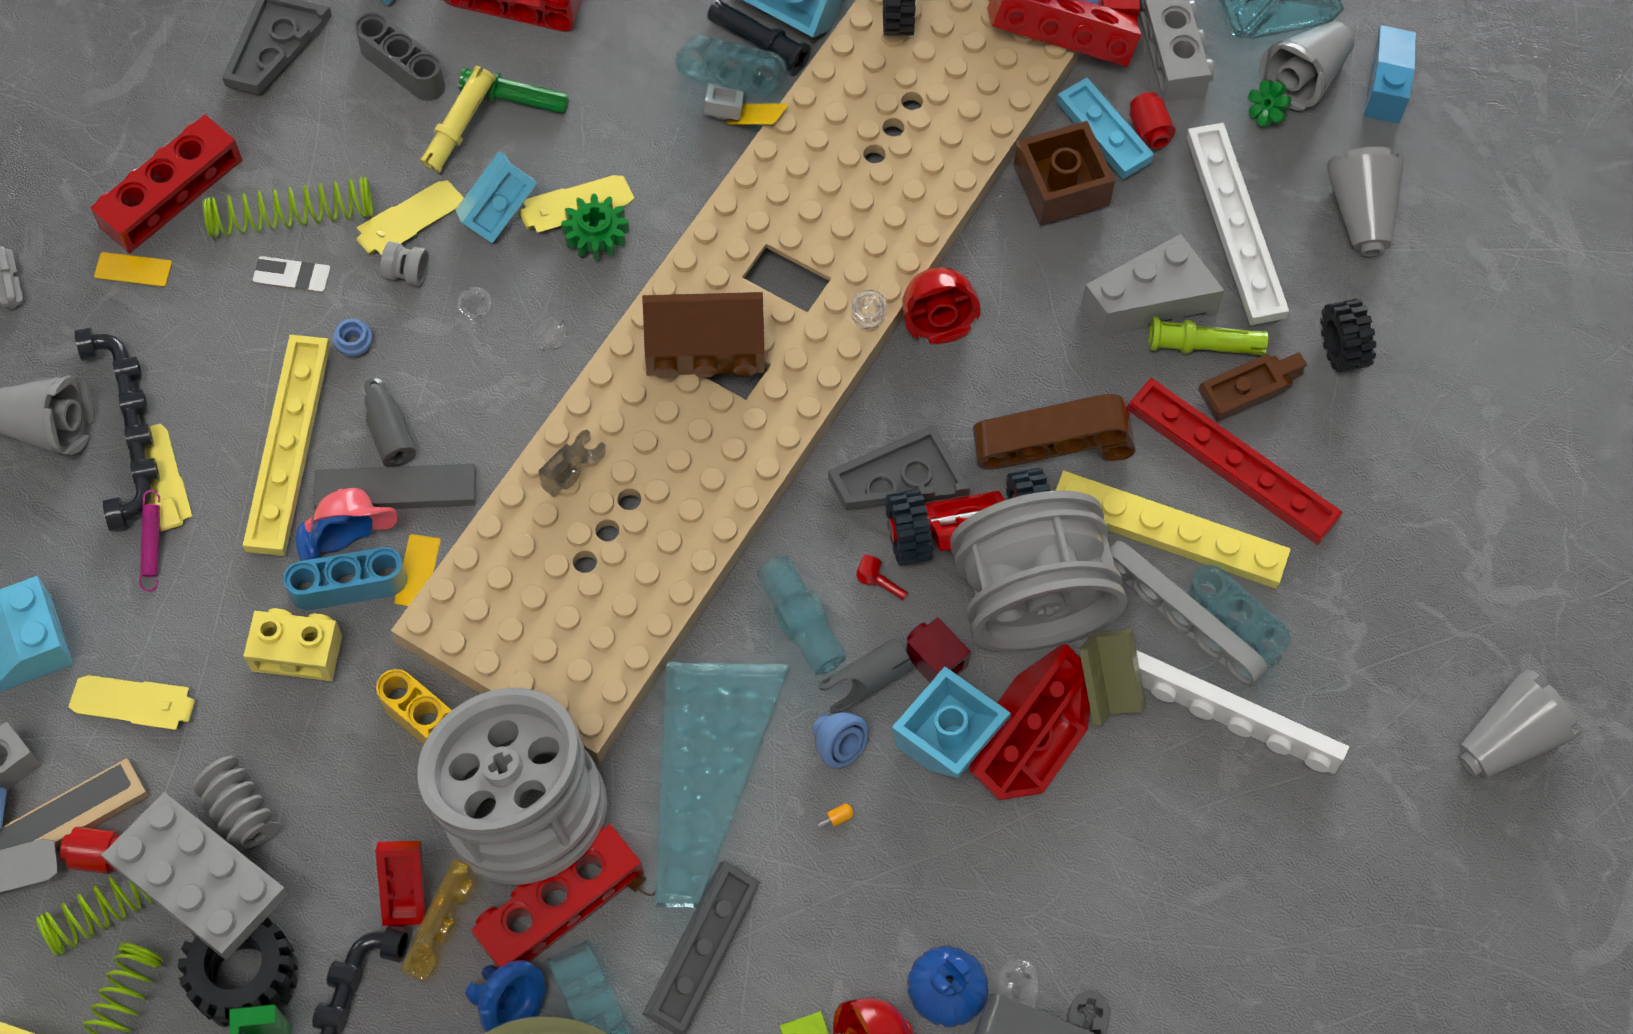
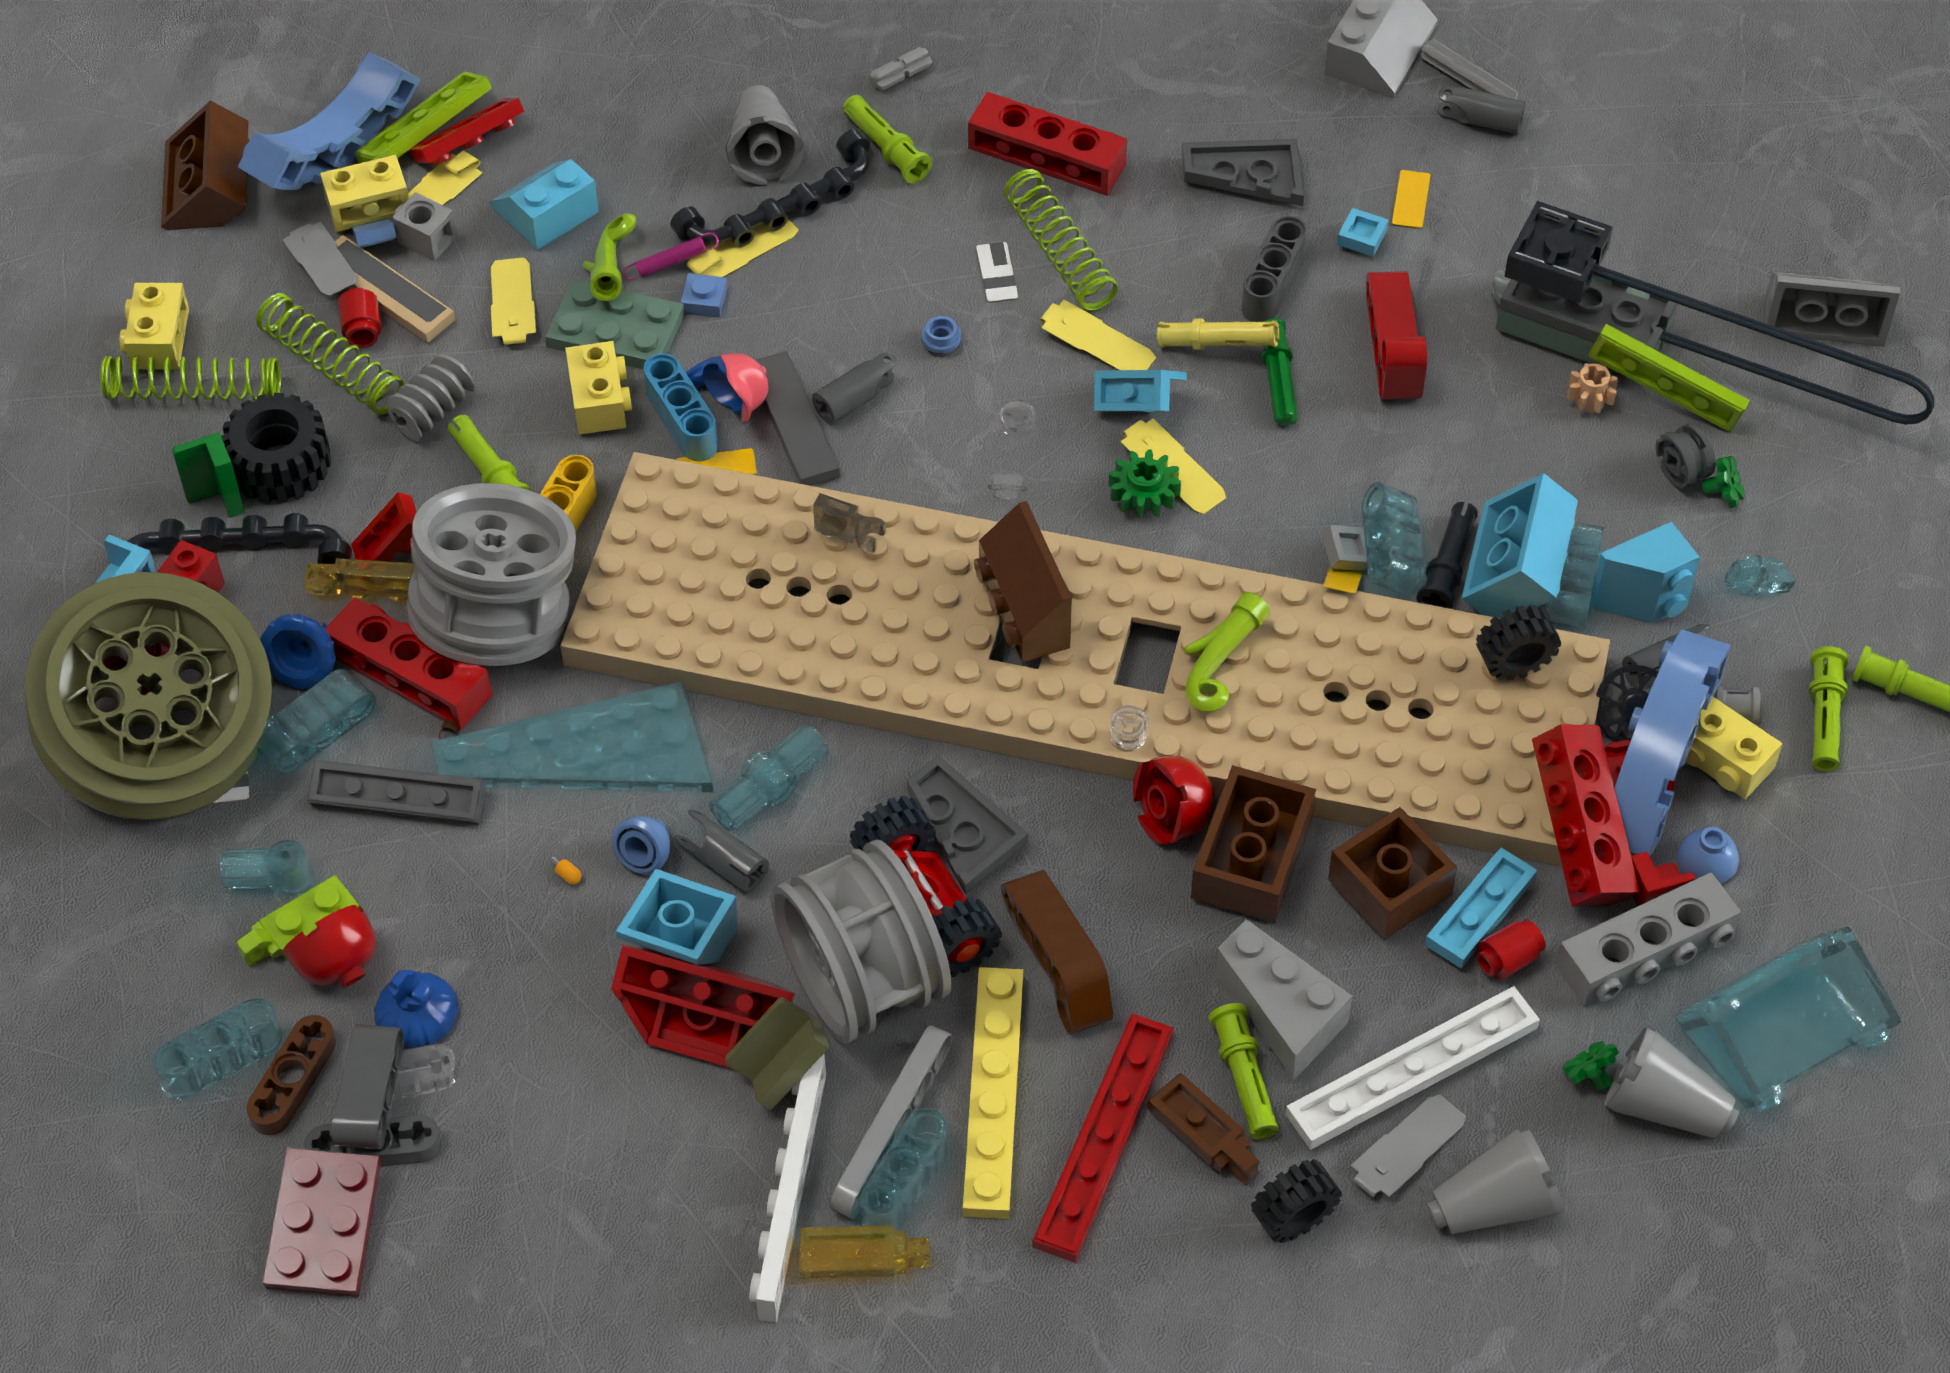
camera: 75 degrees right, 10 degrees down
(108, 308) = (895, 146): none -> lime pin
(133, 269) = (952, 156): yellow sticker -> none
(166, 600) = (605, 277): none -> lime plant
(195, 875) = (342, 378): light grey plate -> none
(208, 525) = (704, 294): none -> medium blue plate
(209, 614) = (633, 321): none -> sand green plate
(286, 446) = (806, 321): light yellow plate -> none
(358, 765) = (482, 454): none -> lime pin
(404, 263) = (1036, 346): light grey wheel -> none
(787, 186) = (1217, 645): none -> lime plant
(868, 574) = (841, 826): red hand -> none
(936, 647) = (754, 904): dark red brick -> none
(1005, 259) = (1253, 843): none -> reddish brown brick
(1301, 252) = (1406, 1148): none -> light grey piece
(1301, 673) = (860, 1252): none -> clear yellow hinge
(1391, 74) = (1704, 1186): dark azure slope -> none

